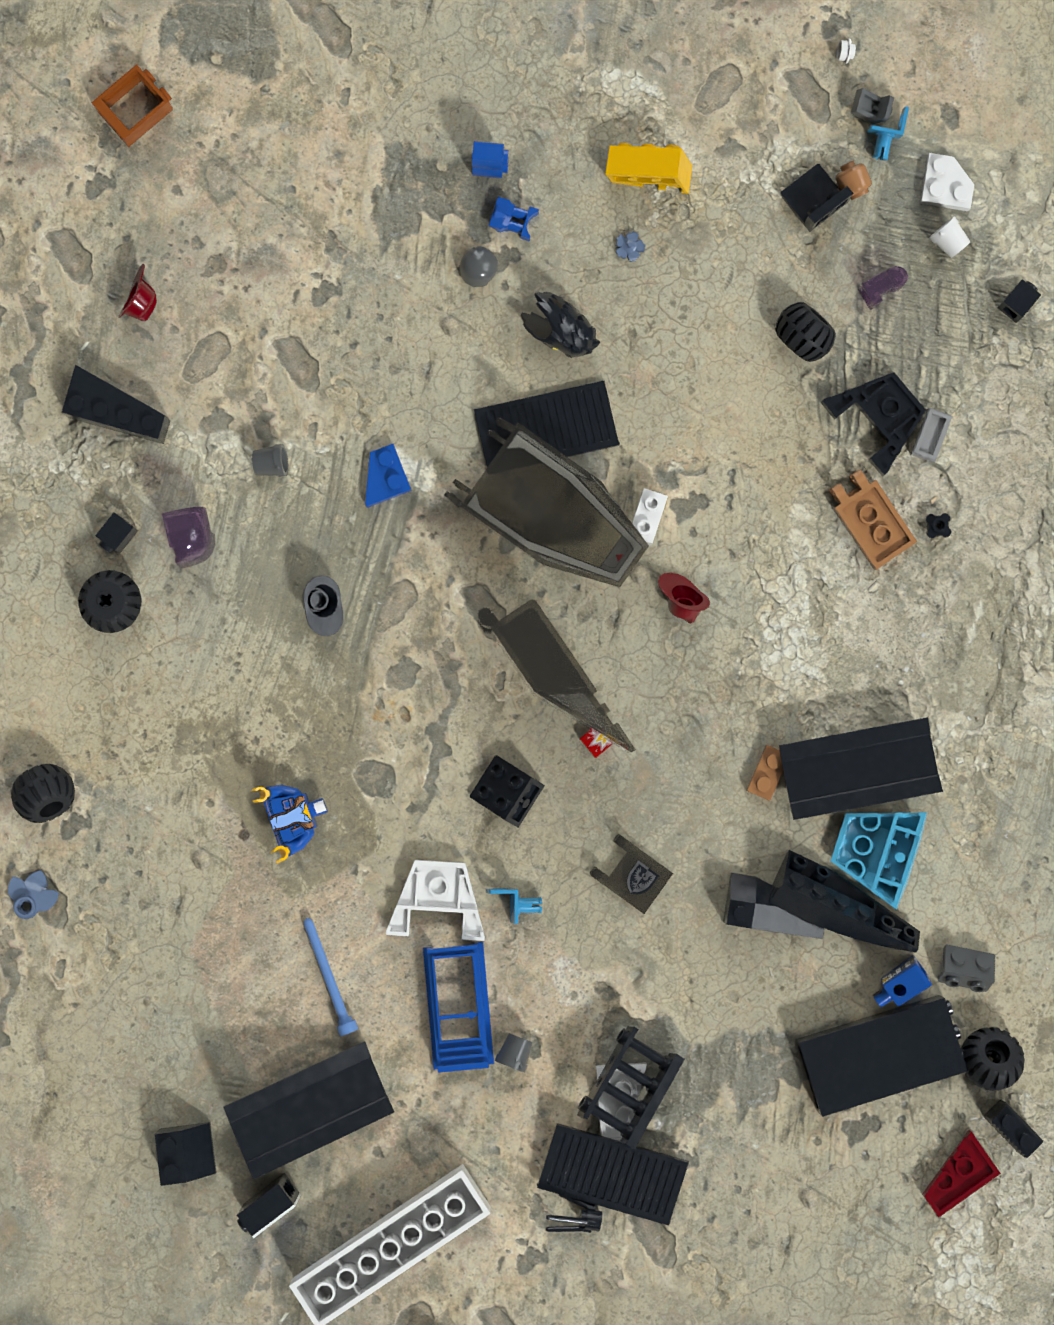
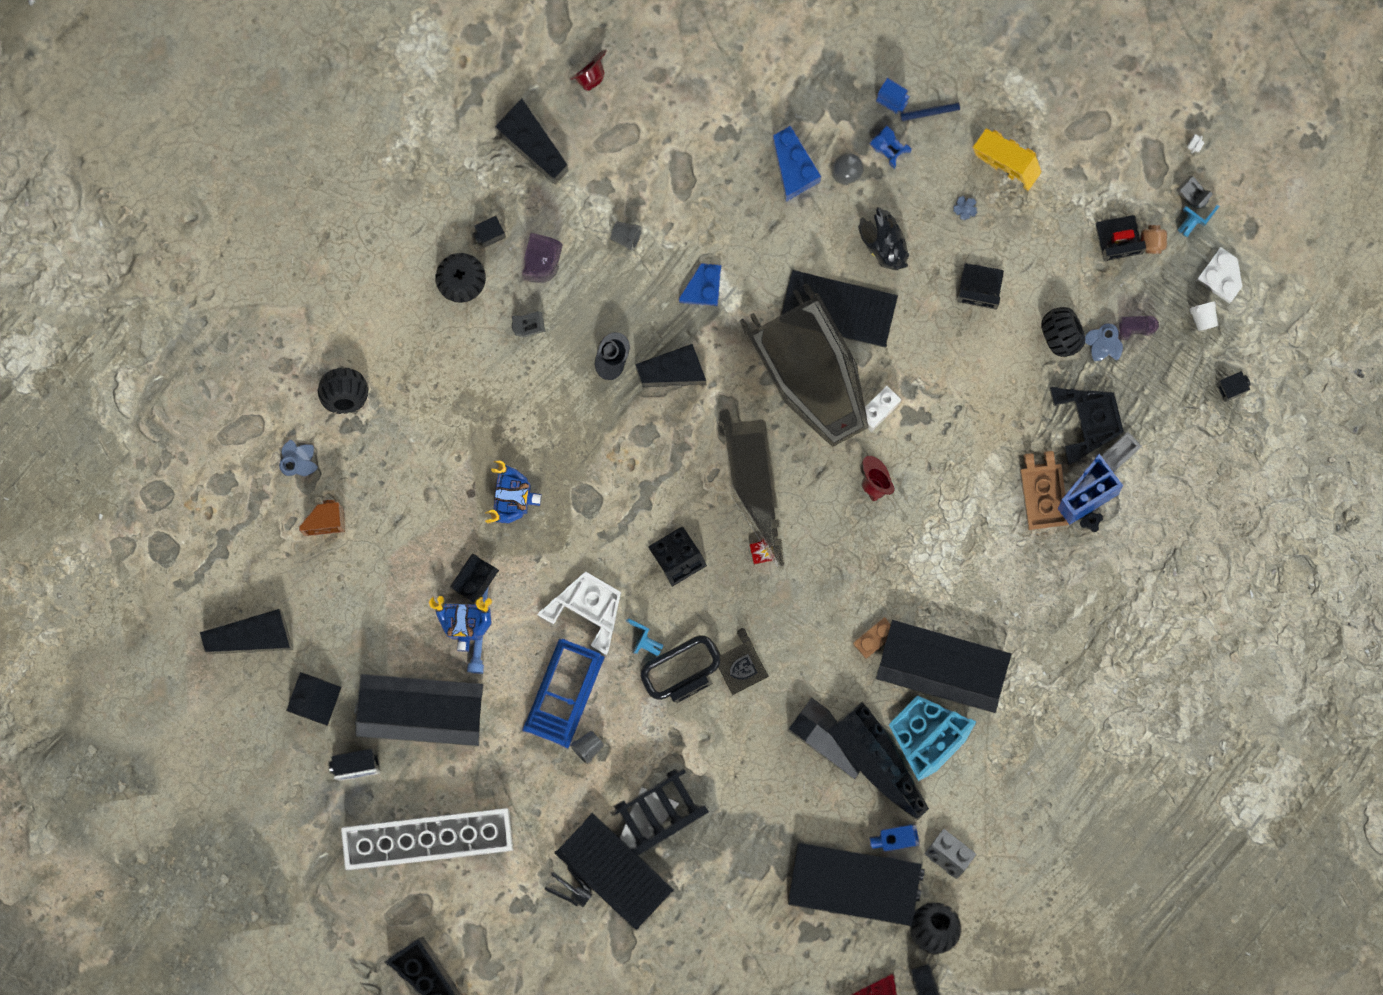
camera: 35 degrees right, 5 degrees down
(83, 1115) = (252, 634): none -> black wedge
(95, 948) = (324, 519): none -> dark orange slope
(212, 616) = (528, 324): none -> dark grey bracket
(295, 930) = (474, 578): none -> black bracket
(307, 984) = (463, 621): none -> torso
(397, 586) = (673, 368): none -> black wedge
(417, 289) = (794, 164): none -> blue wedge
(537, 158) = (930, 111): none -> dark blue bar
(592, 928) = (690, 685): none -> black bar
(690, 325) = (980, 286): none -> black bracket
(819, 193) = (1122, 236): none -> red tile
(857, 324) = (1102, 345): none -> sand blue plate
(923, 494) = (1090, 491): none -> blue wedge

